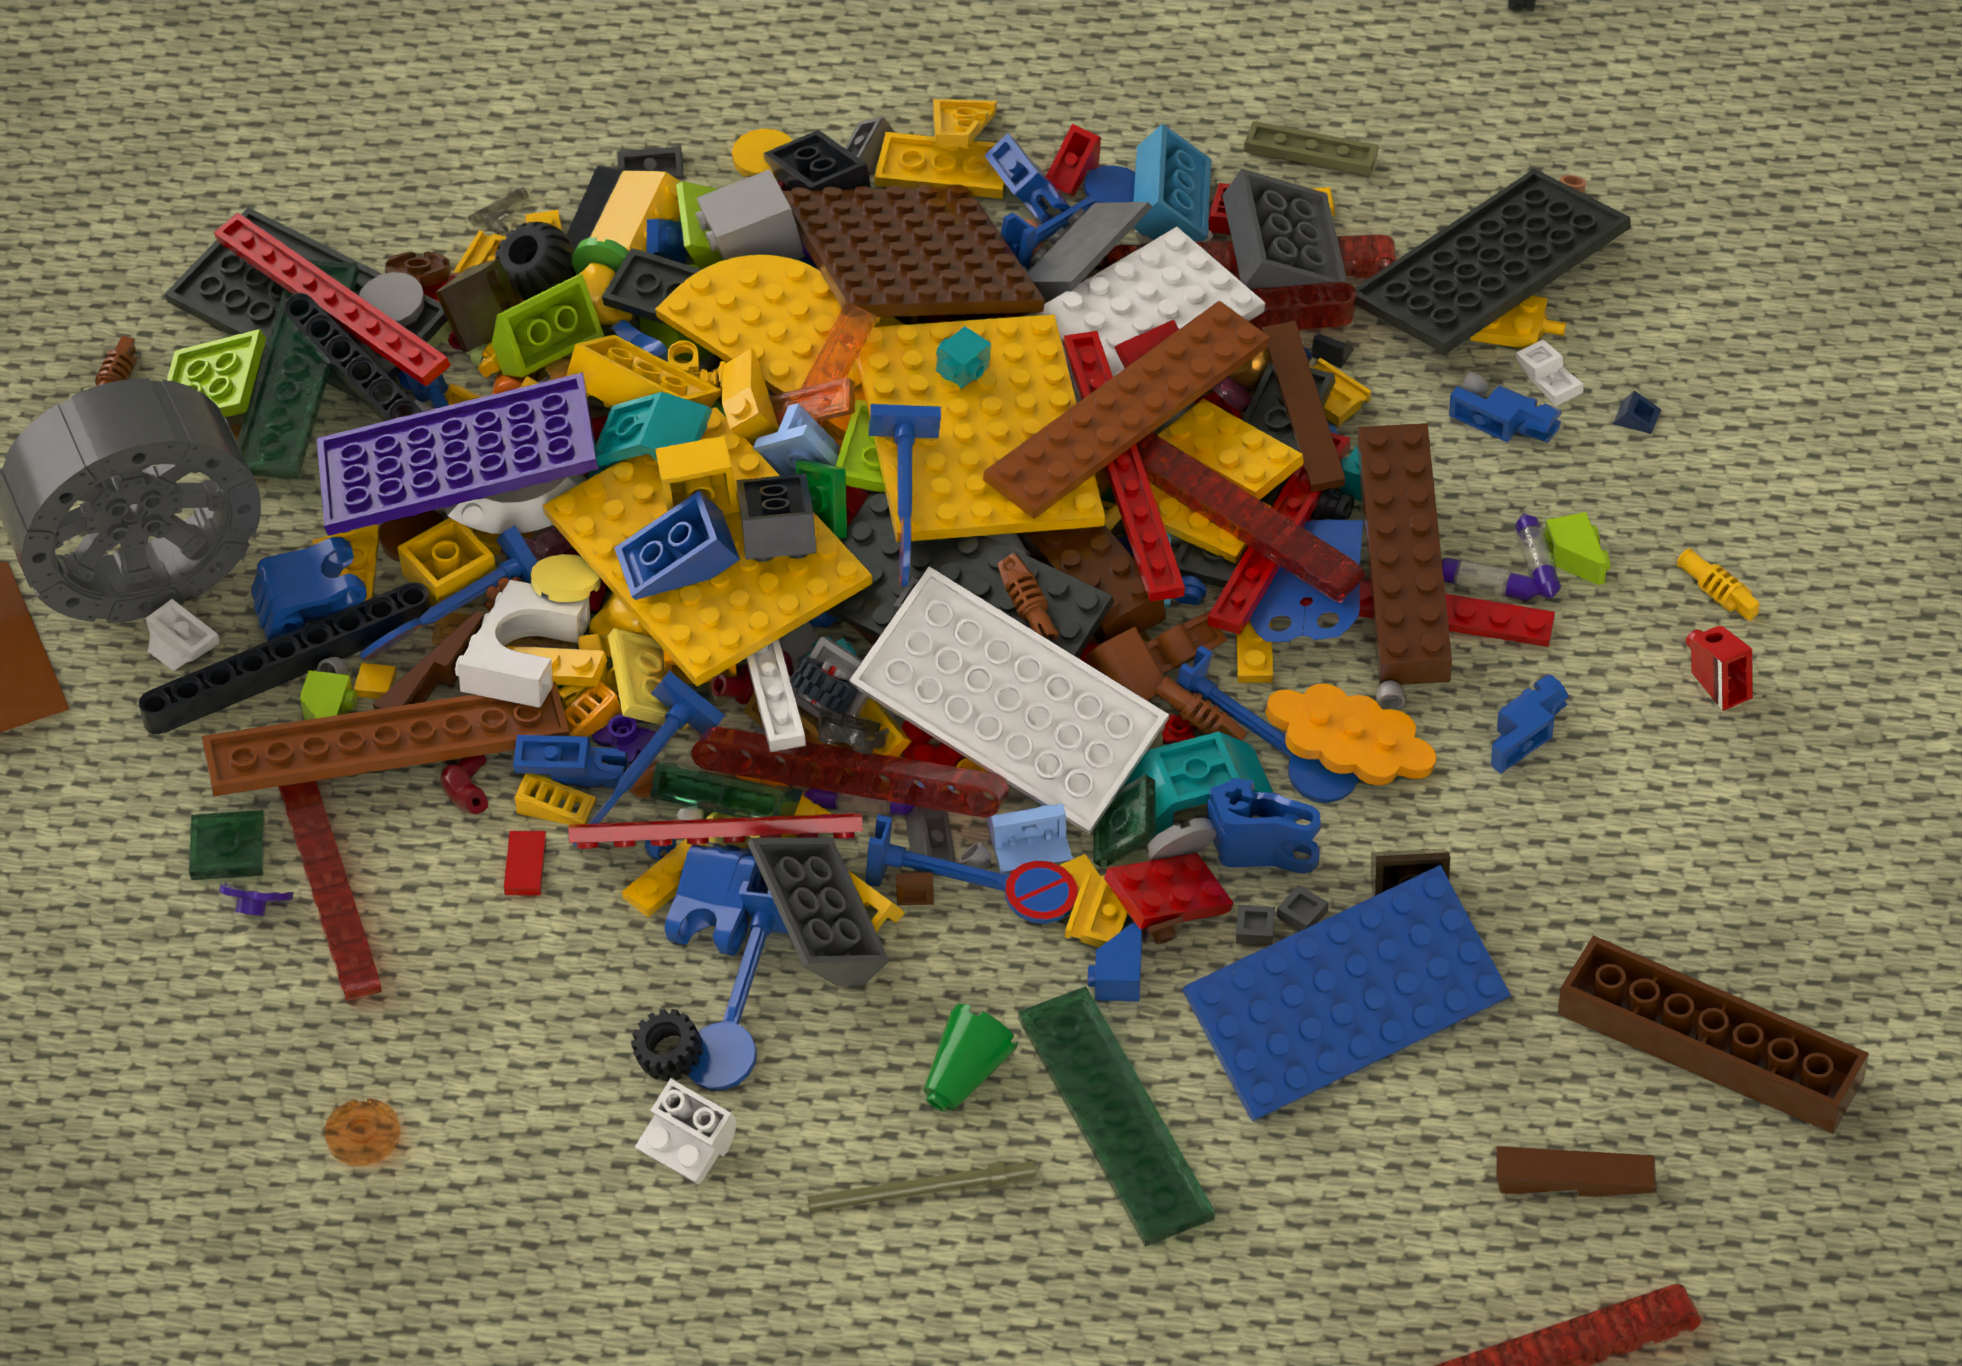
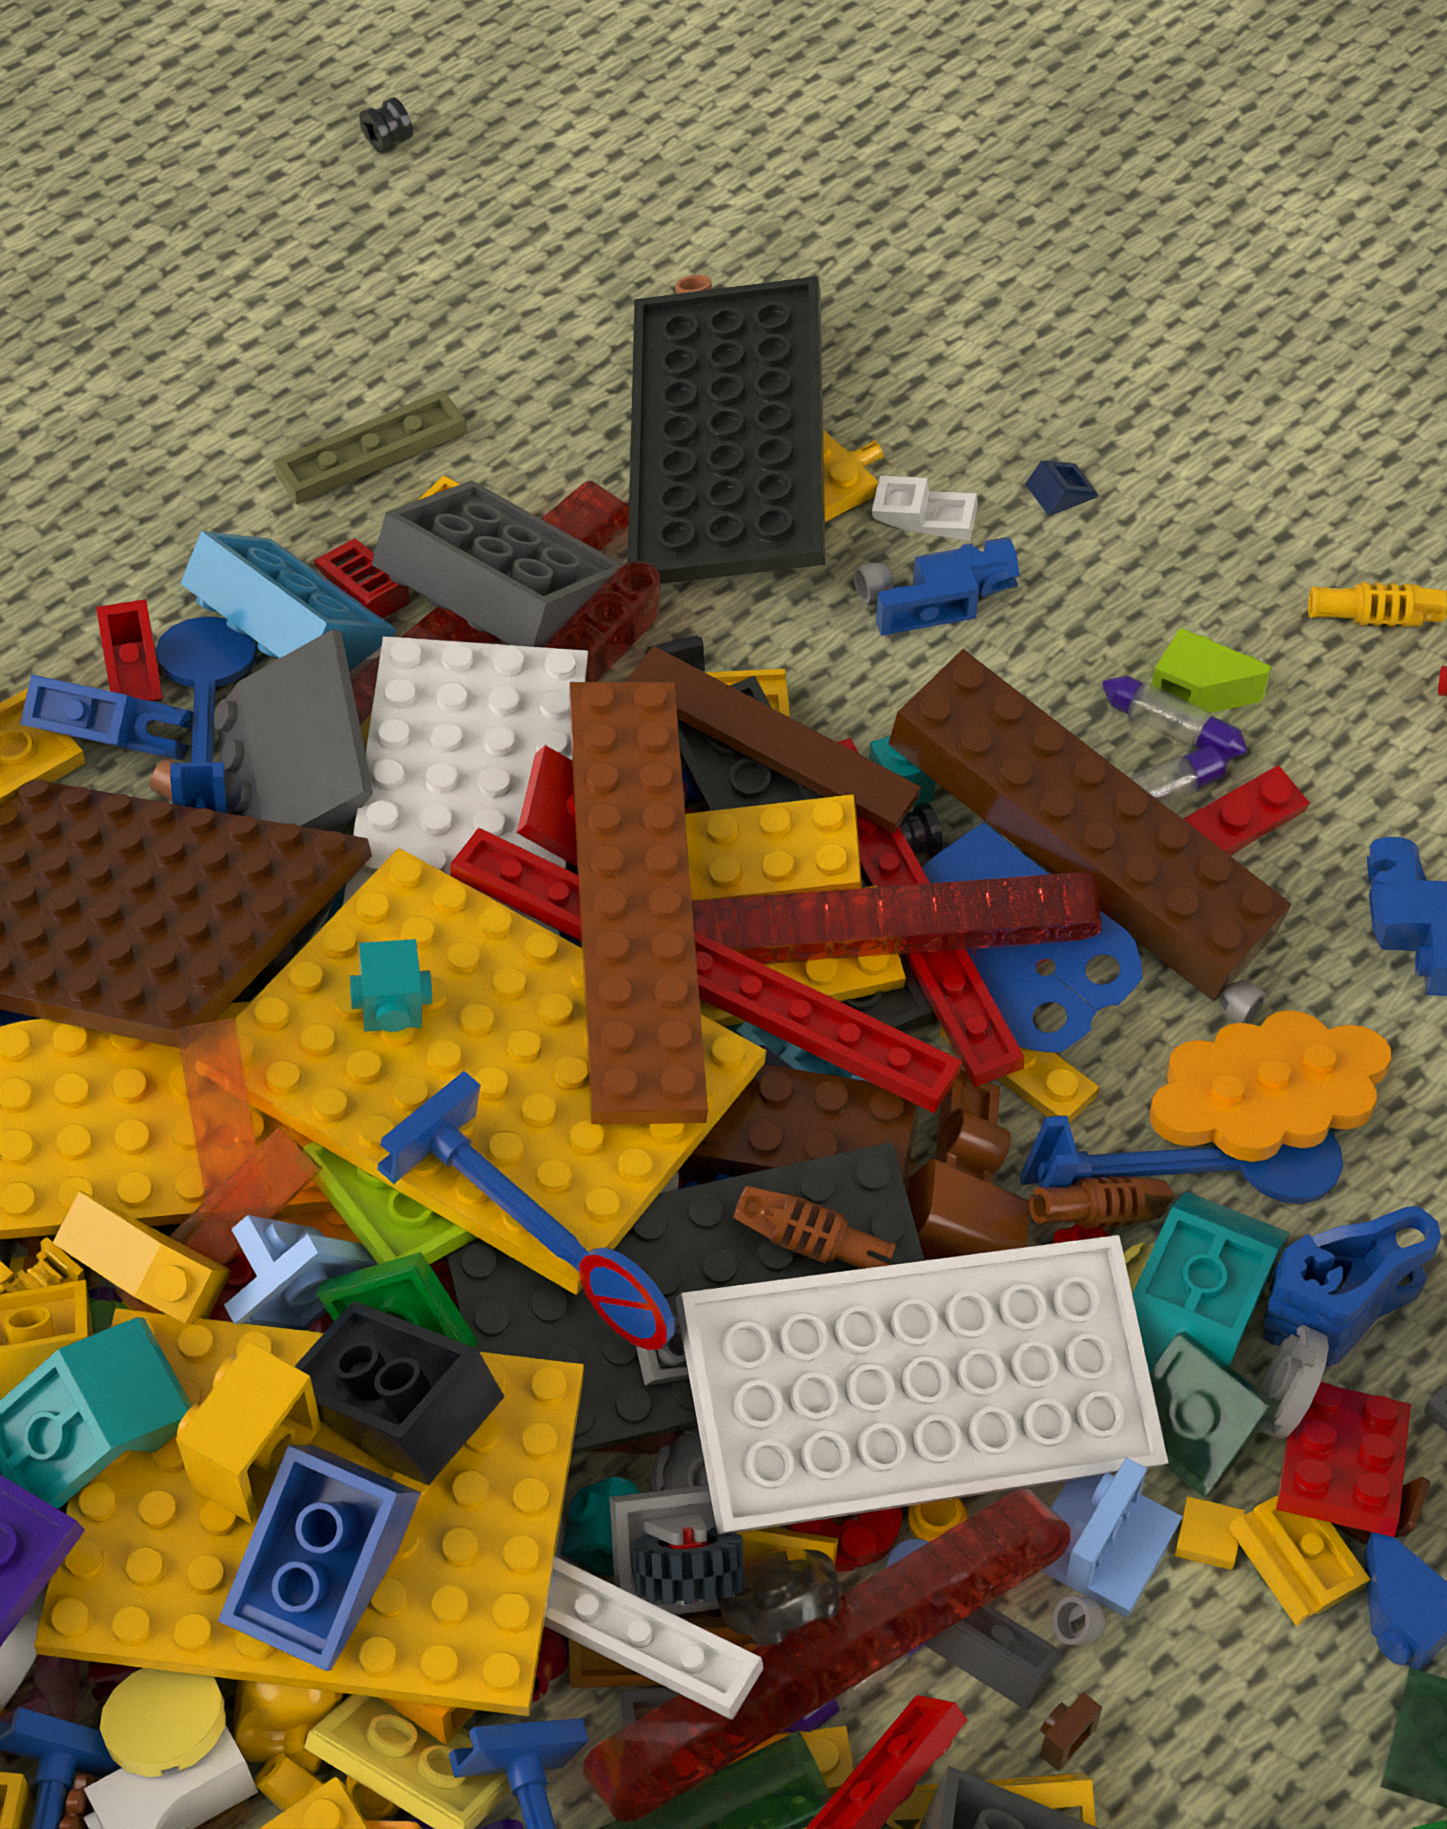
camera: 50 degrees left, 5 degrees up
(1033, 890) = (1200, 1594): piece -> none

